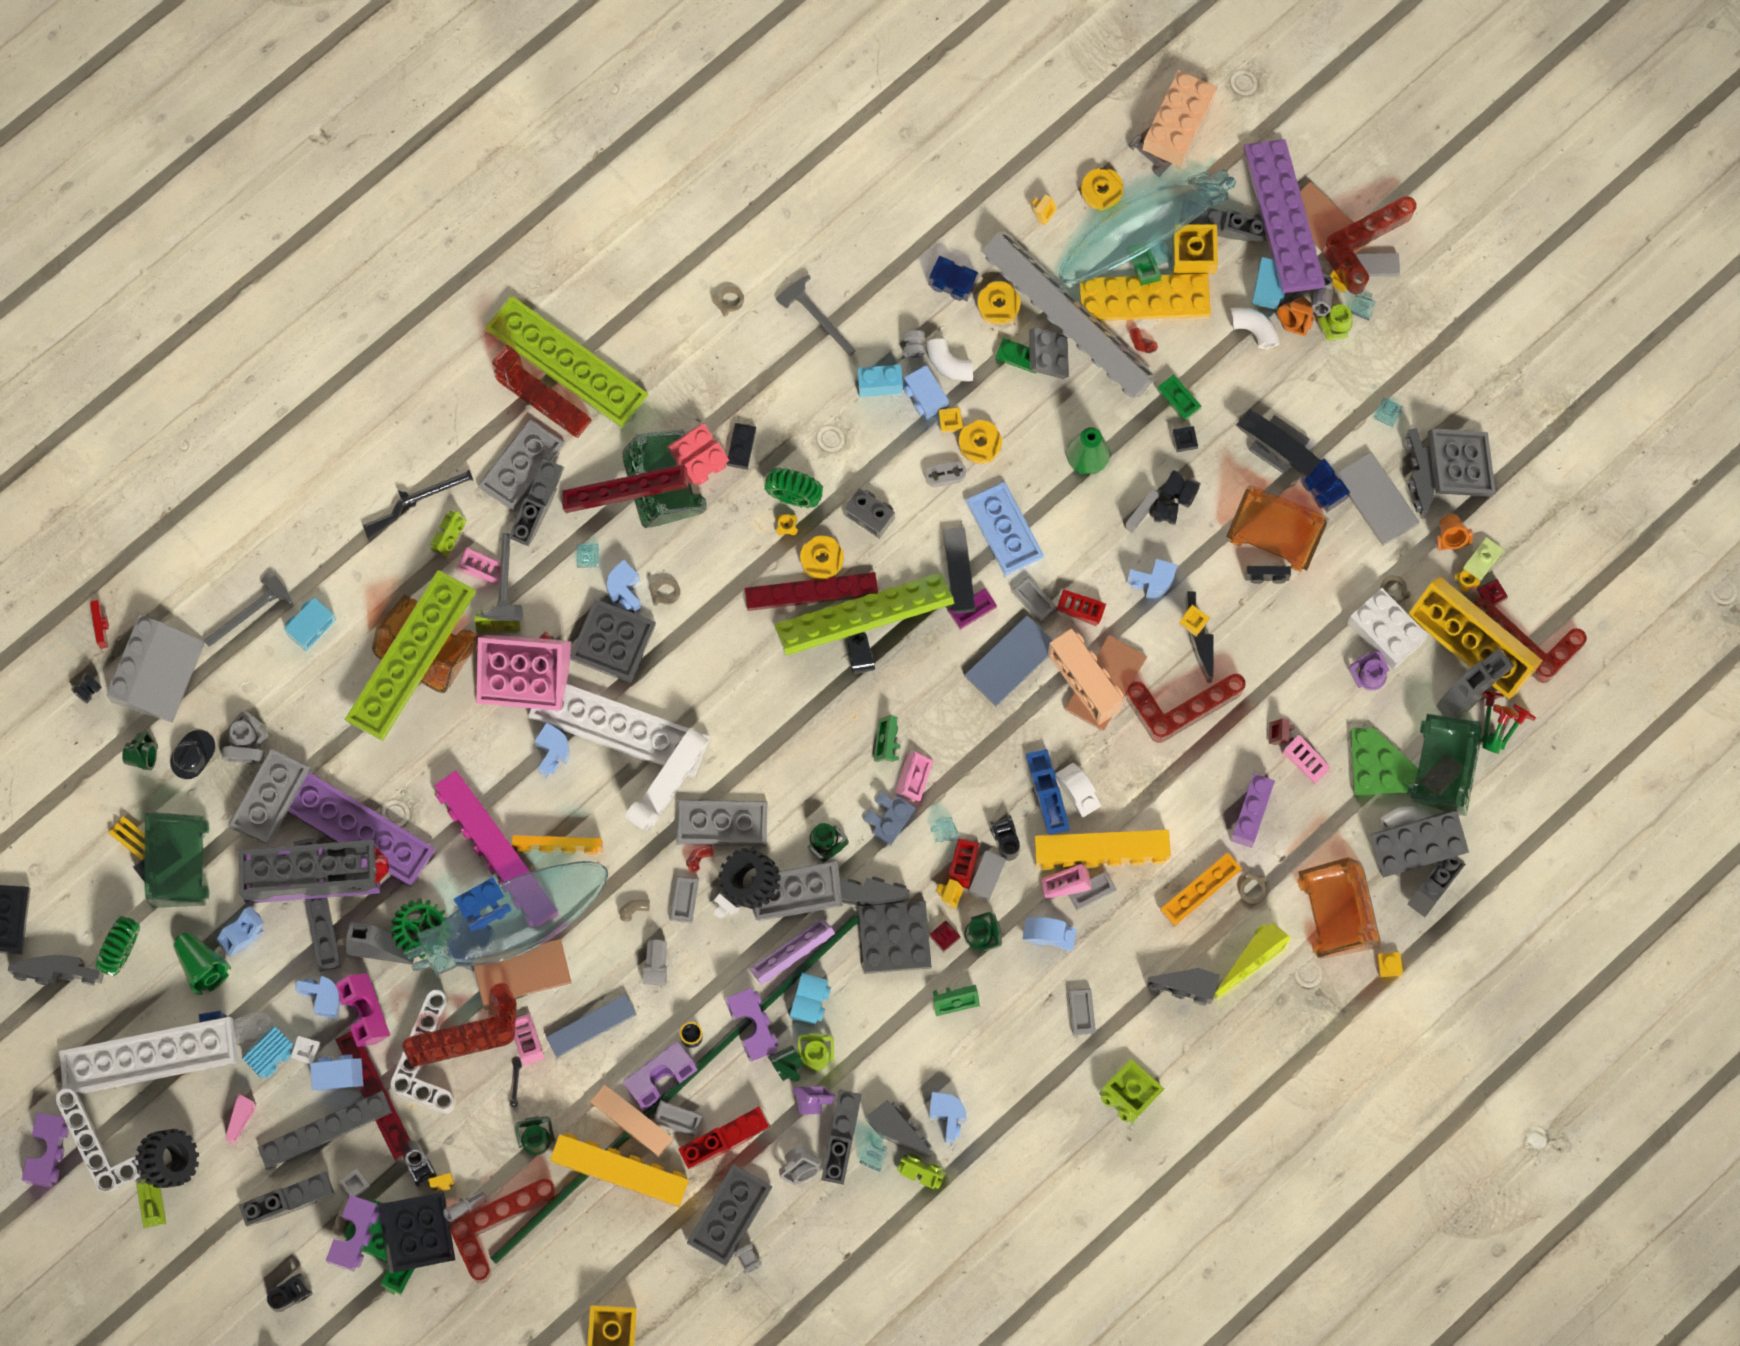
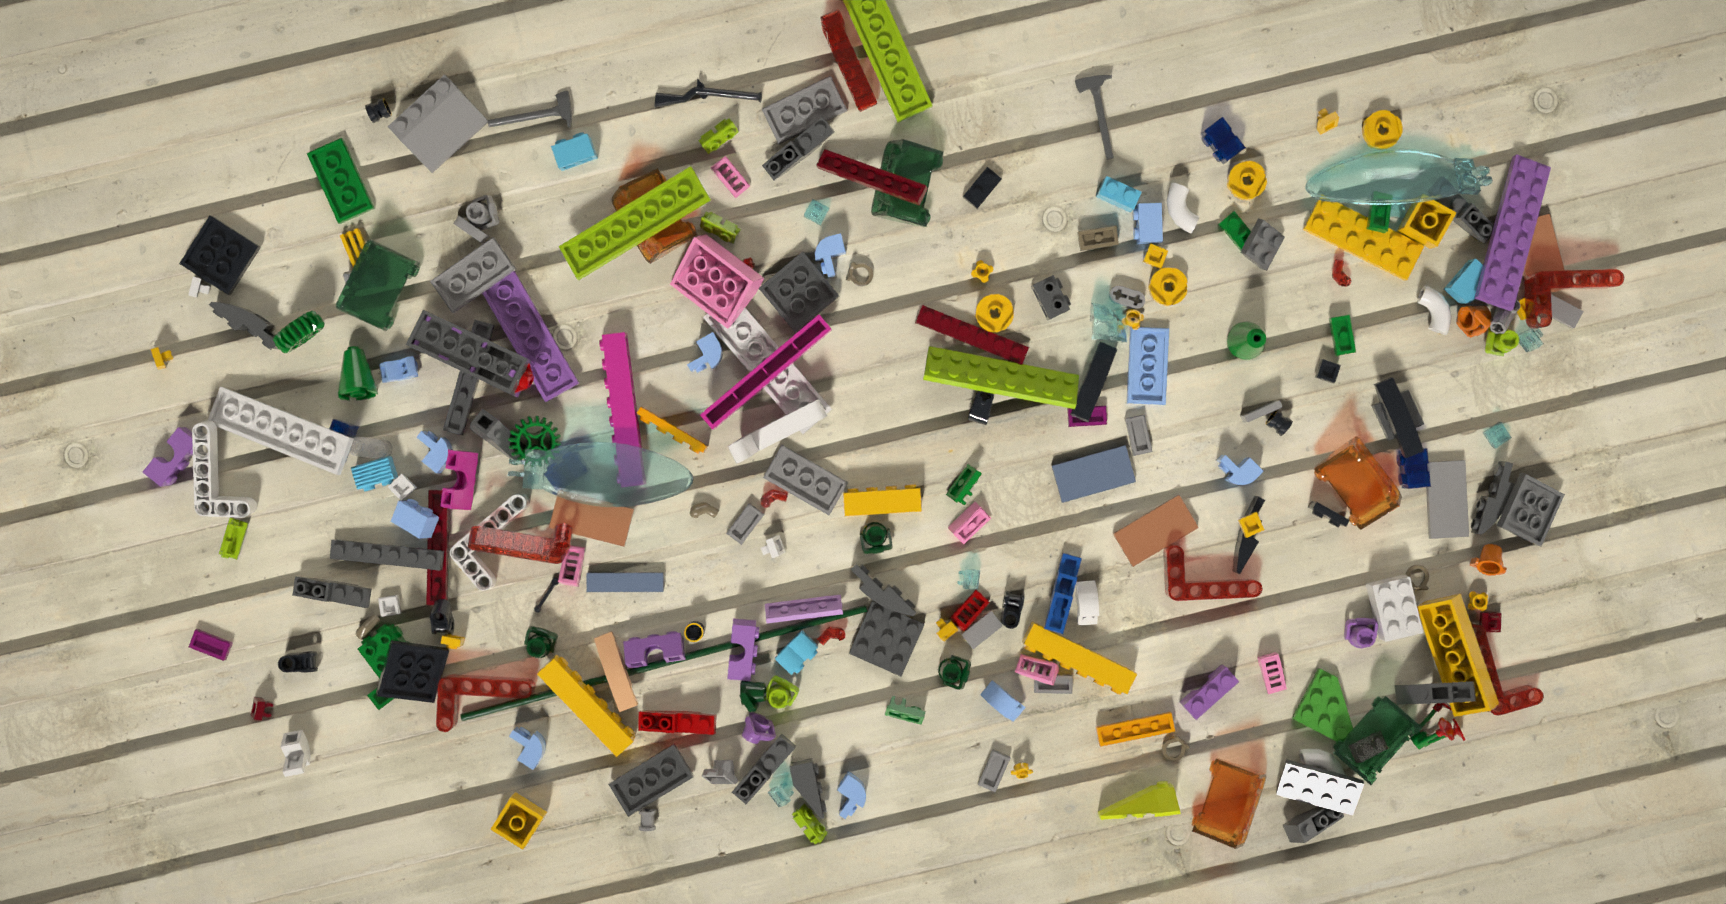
camera: 25 degrees right, 15 degrees up
(81, 779) = (340, 180): none -> green tile
(100, 624) = (413, 63): red plate -> none
(141, 754) = (393, 187): dark green piece -> none
(152, 1163) = (246, 506): black tyre -> none
(182, 1330) = (210, 644): none -> magenta tile
(192, 754) = (435, 206): black piece -> none
(241, 1114) = (331, 508): bright pink slope -> none
(348, 1253) = (375, 639): medium lavender arch -> none
(465, 1206) = (460, 668): light grey axle -> none
(478, 898) = (586, 446): blue plate -> none
(502, 610) = (725, 224): dark grey piece -> none
(586, 1246) = (534, 746): none -> light blue brick
(623, 731) = (766, 372): none -> dark pink brick
(655, 968) = (695, 565): light grey piece -> none
(677, 1118) = (651, 687): light grey tile -> none
(699, 454) = (944, 178): coral plate -> none
(717, 300) = (1030, 68): dark tan piece -> none
(735, 871) = (788, 531): black tyre -> none
(793, 487) = (1003, 246): green gear -> none
(803, 891) = (831, 567): light grey tile -> none
(812, 800) = (882, 501): none -> yellow brick
(835, 961) = (831, 633): none -> clear red arm
(884, 433) = (1098, 238): none -> dark tan plate
(894, 819) = (934, 549): sand blue plate -> none
(914, 344) = (1162, 178): light grey wheel -> none
(941, 509) = (1106, 324): none -> clear light blue brick
(944, 936) = (924, 658): dark red tile -> none
(959, 489) = (1130, 313): none -> yellow plate
(1068, 314) = (1296, 220): light grey brick -> none
(1085, 617) = (1182, 473): red slope -> none
(1085, 676) = (1142, 523): light nougat brick -> none
(1109, 994) = (1021, 770): none -> yellow plate
(1130, 1091) = (995, 852): lime plate -> none
(1161, 165) = (1440, 134): flat silver piece -> none
(1179, 118) = (1478, 104): light nougat brick -> none
(1181, 489) = (1301, 410): black wheel -> none
(1191, 983) = (1088, 796): dark grey slope -> none
(1279, 731) = (1265, 642): dark red tile -> none
(1389, 964) = (1242, 860): yellow plate -> none
(1483, 559) = (1500, 593): yellowish green plate -> none

